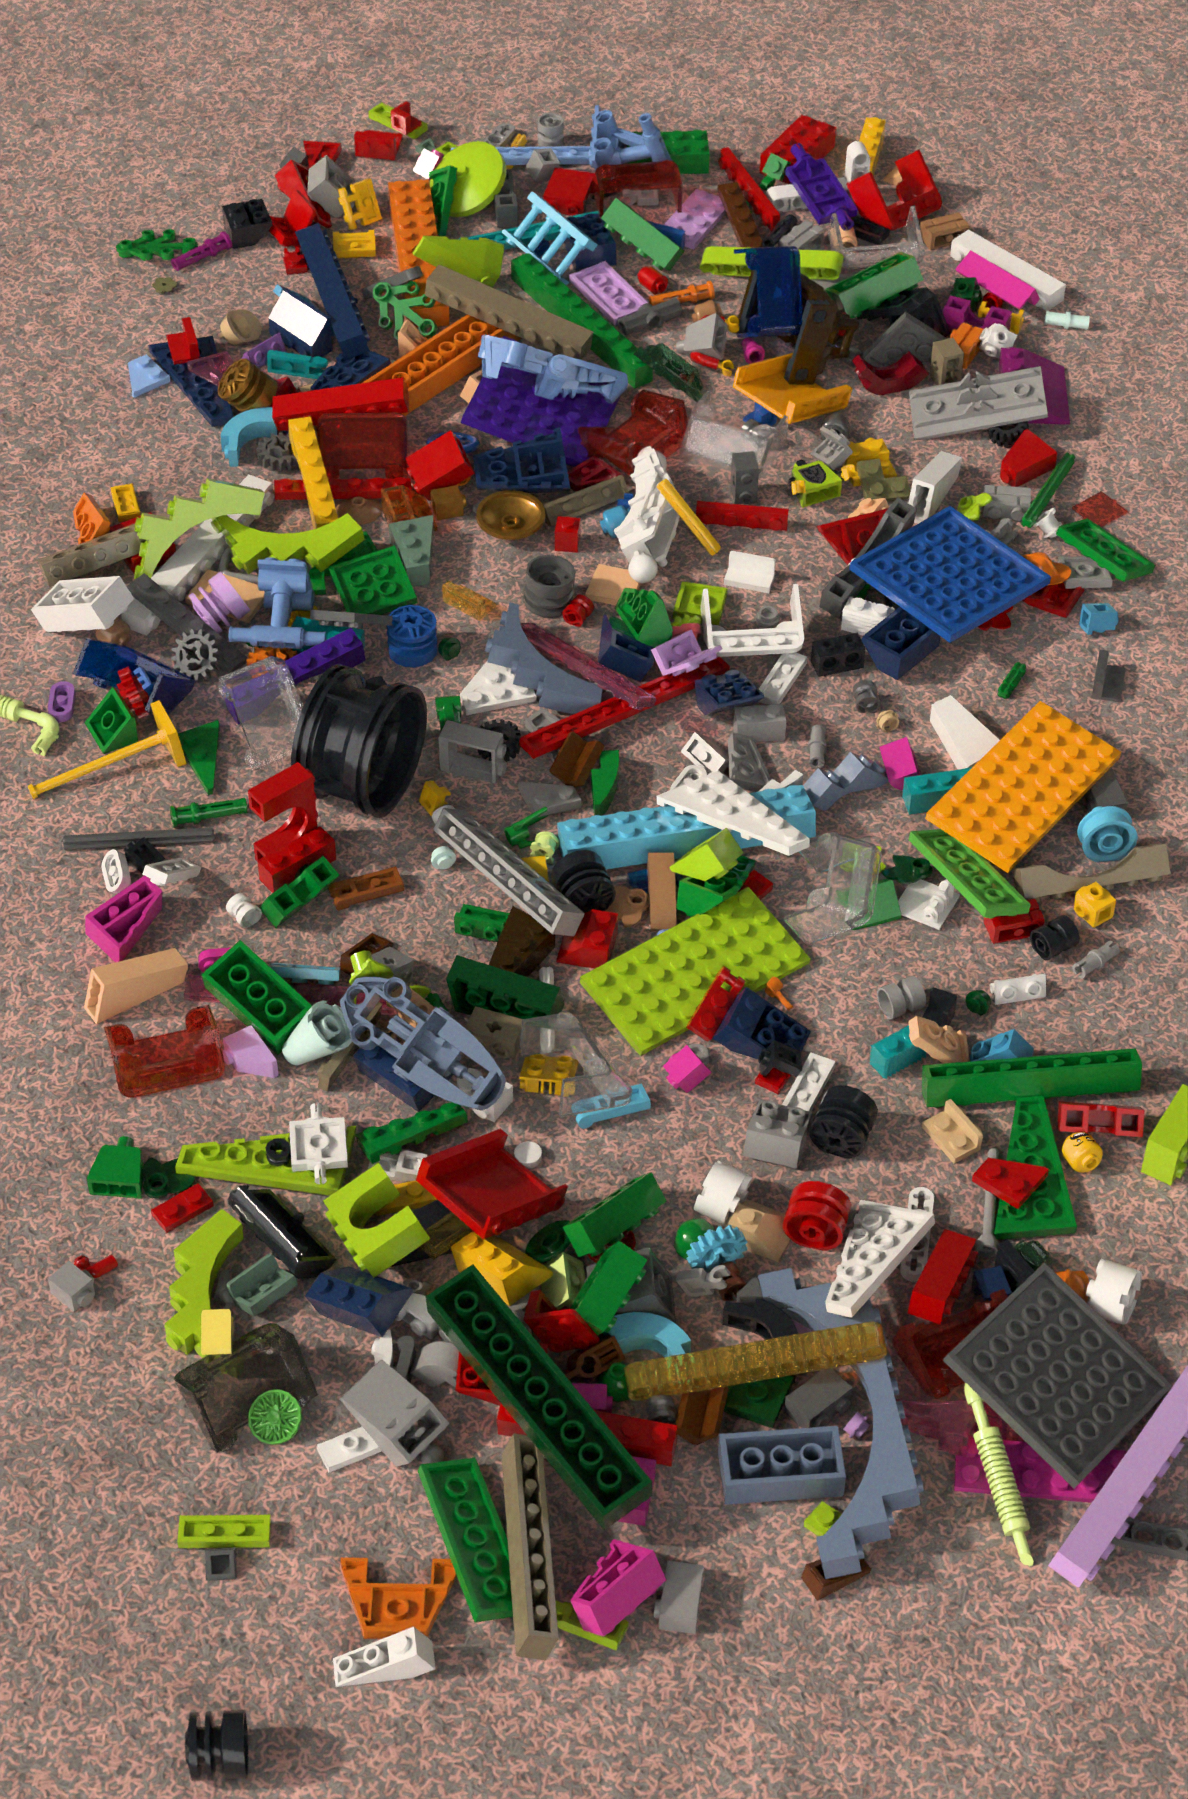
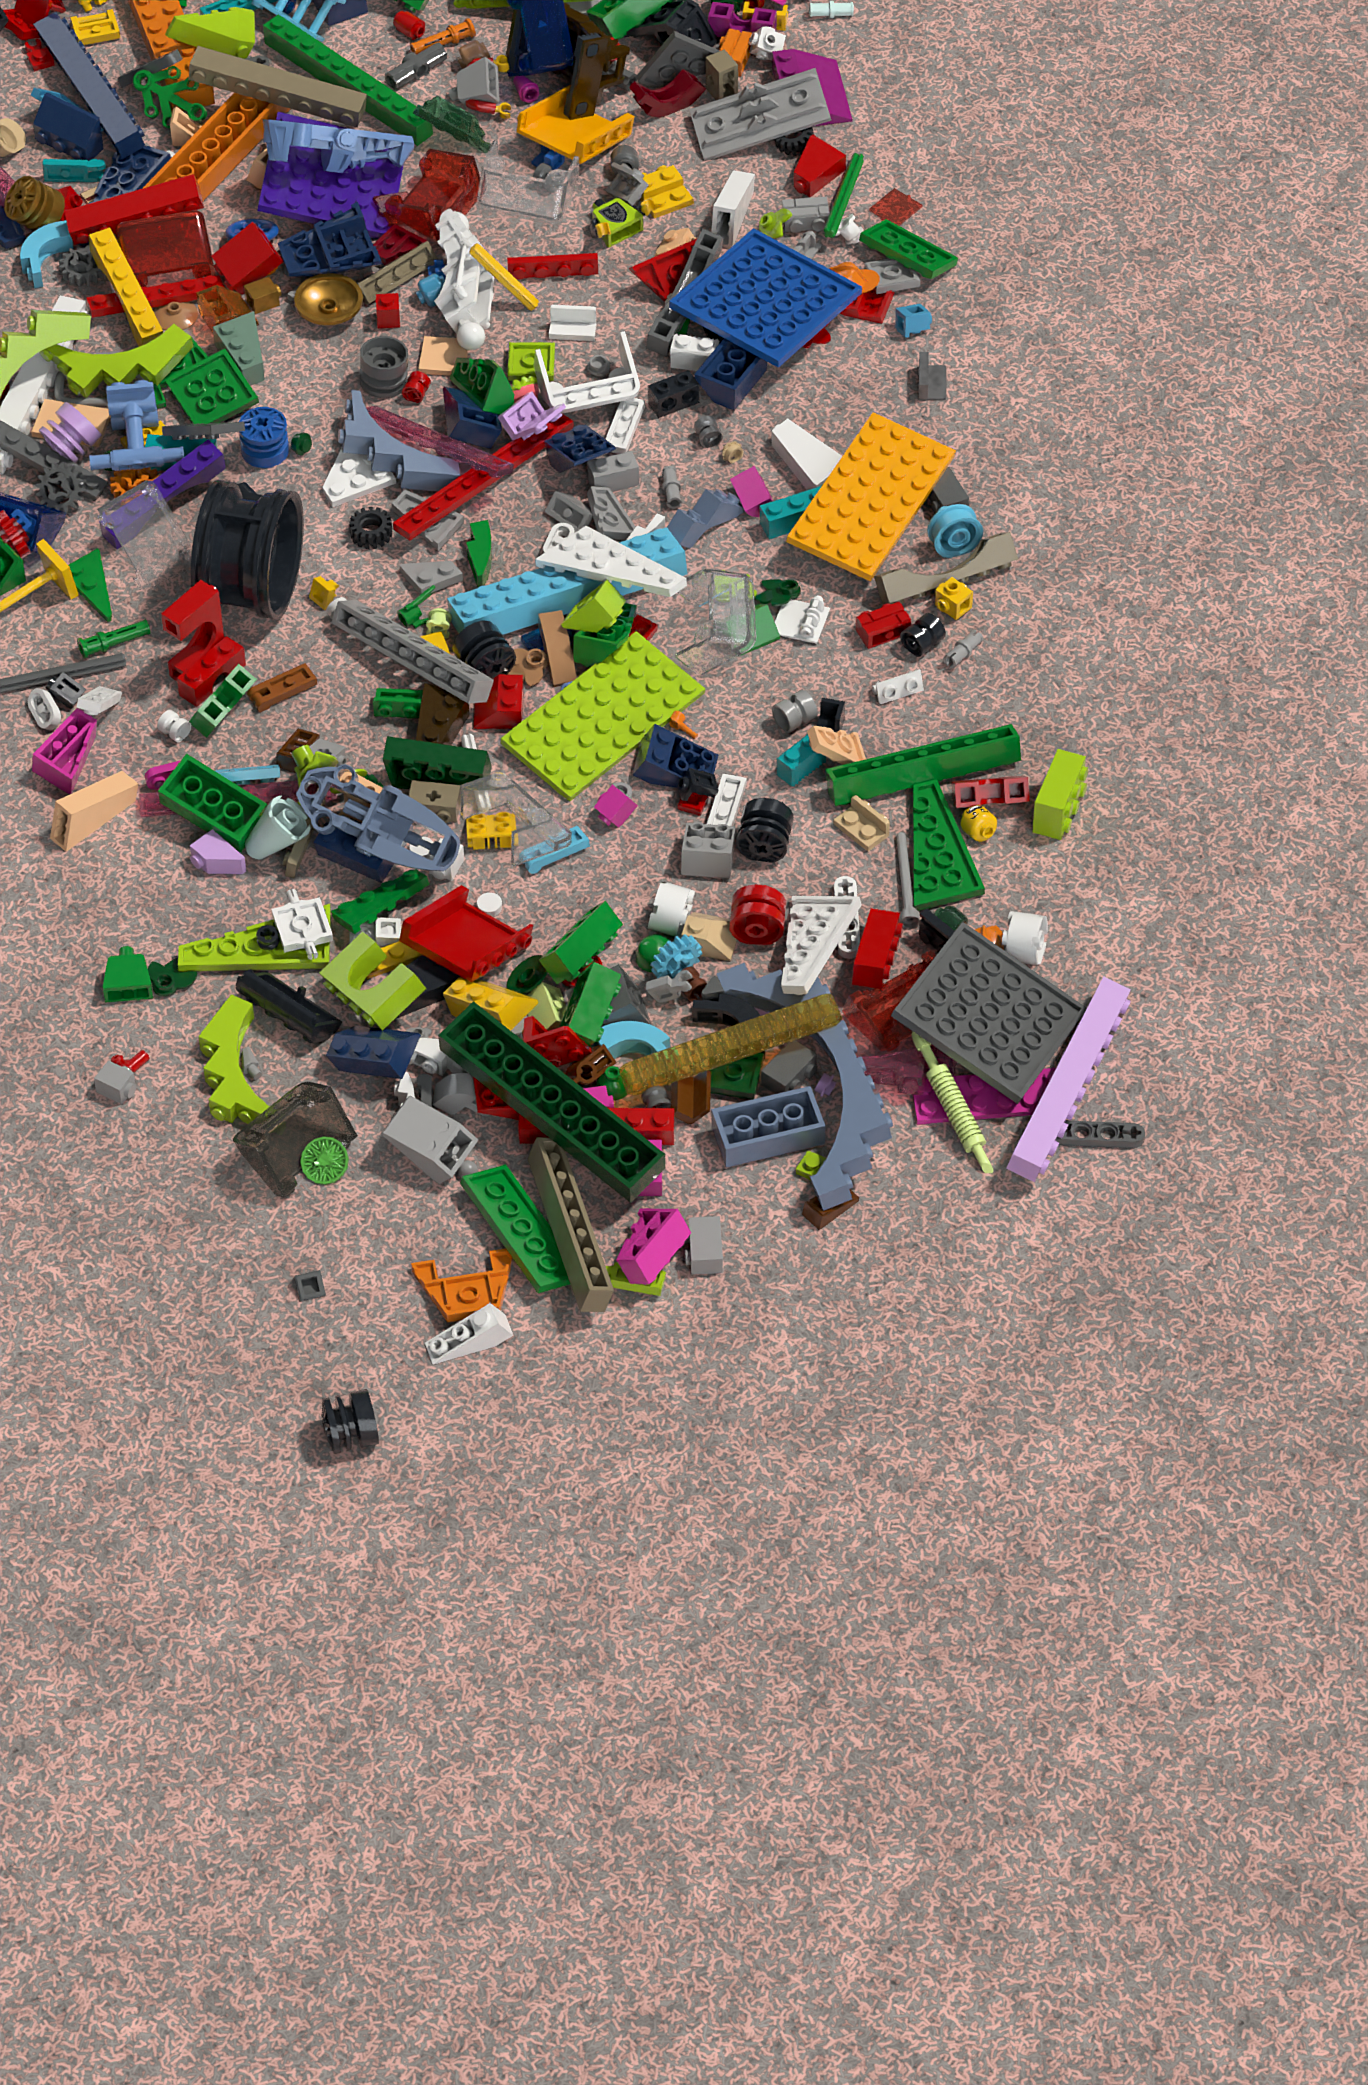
camera: 10 degrees left, 5 degrees up
(166, 1059) = (143, 872): clear red windscreen -> none
(182, 1208) = (192, 1000): red plate -> none
(216, 1331) = (260, 1096): light yellow slope -> none
(224, 1531) = (306, 1259): lime plate -> none
(258, 354) = (34, 163): medium lavender hinge -> none
(260, 1285) = (282, 1054): sand green bracket -> none
(347, 1449) = (394, 1176): white plate -> none
(443, 857) = (346, 648): light aqua plate -> none
(444, 1234) = (436, 983): clear yellow tile -> none
(448, 709) = (318, 510): green piece -> none
(467, 600) = (305, 393): clear yellow panel -> none
(468, 766) = (350, 556): light grey window -> none
(576, 760) = (449, 535): reddish brown panel -> none
(607, 291) = (367, 44): lavender plate -> none
(715, 1004) = (628, 744): red plate -> none
(744, 477) = (547, 226): dark grey brick -> none
(876, 486) = (680, 217): olive plate -> none
(970, 874) = (836, 587): bright green plate -> none
(978, 1002) = (864, 704): dark green plate -> none
(989, 1281) = (916, 946): dark blue panel -> none
(1002, 1046) = (892, 741): dark azure slope -> none
(1009, 1179) = (919, 857): red wing -> none
(1011, 680) = (841, 394): green axle -> none

